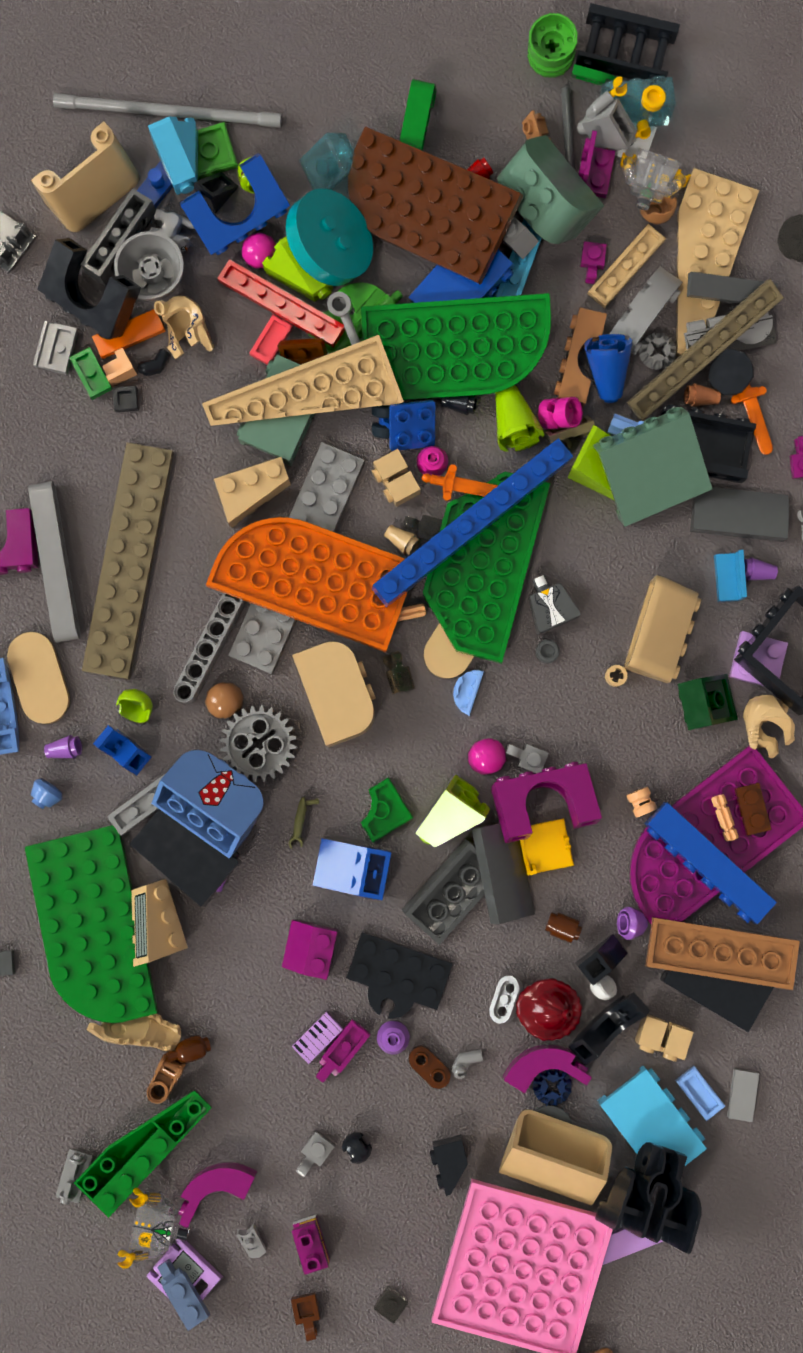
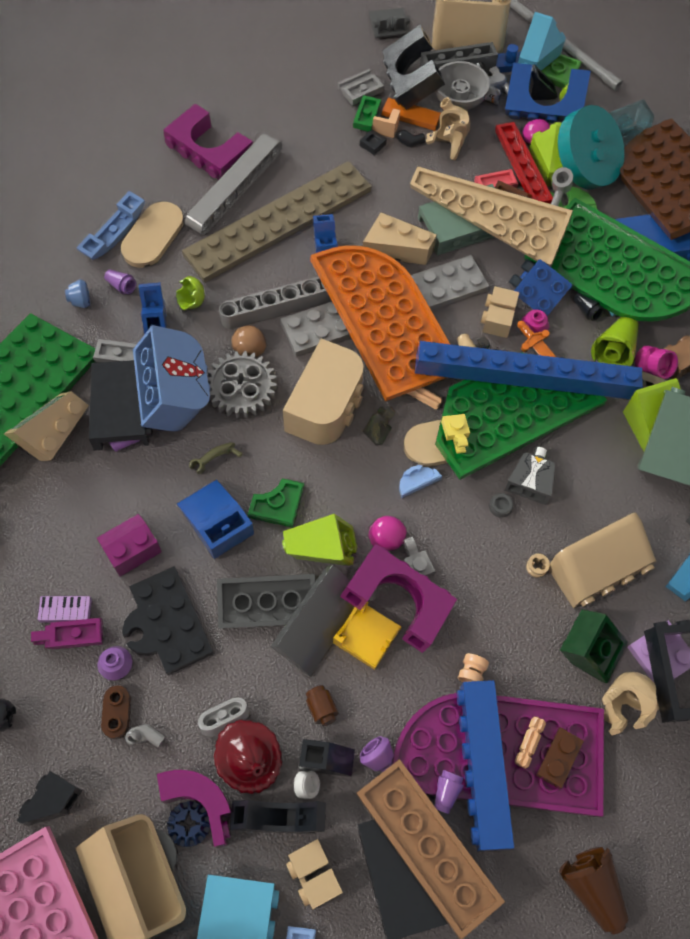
camera: 35 degrees right, 20 degrees down
(188, 543) = (324, 232): none -> blue brick
(464, 627) = (456, 429): none -> light yellow plate
(700, 902) = (447, 791): none -> medium lavender cone

